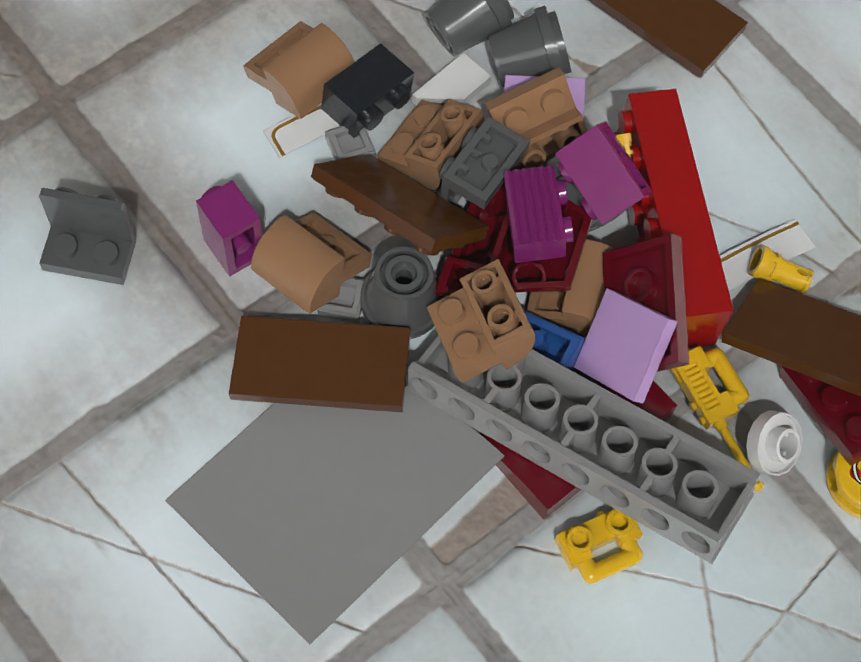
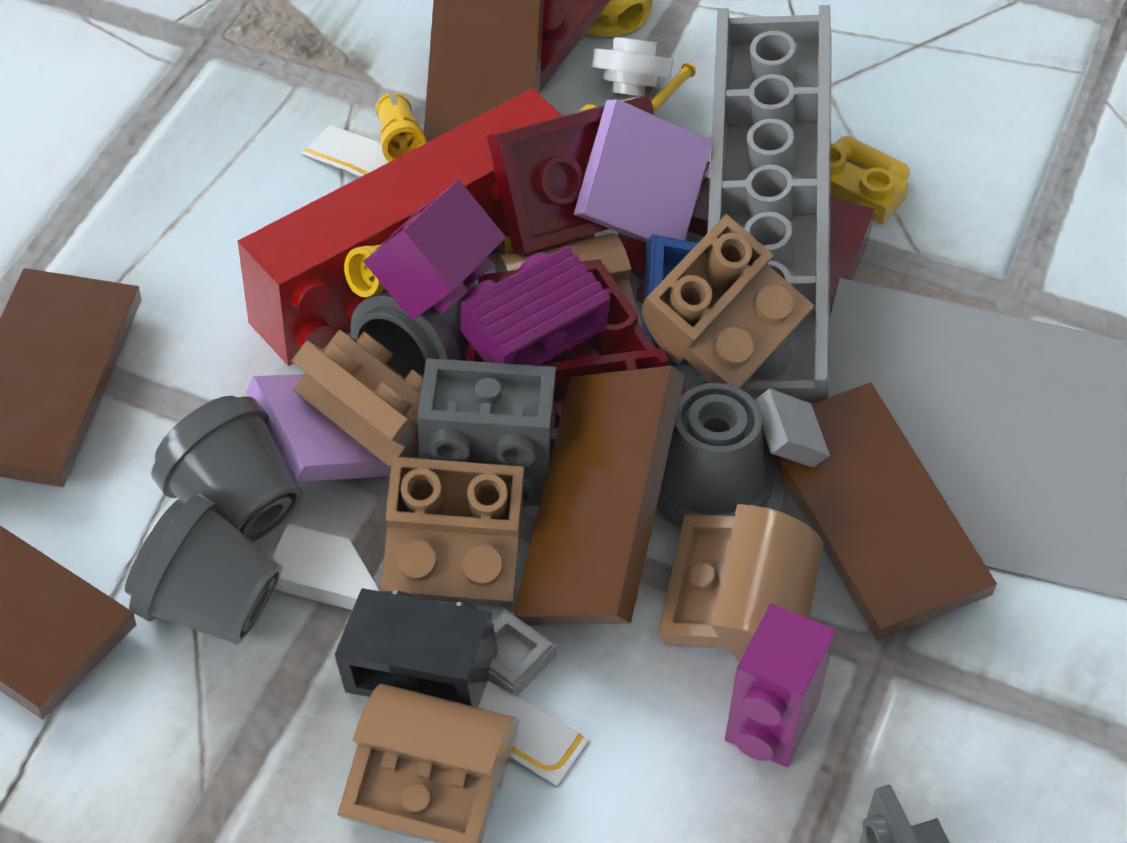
camera: 115 degrees left, 15 degrees down
(384, 325) = (791, 428): none -> light grey tile

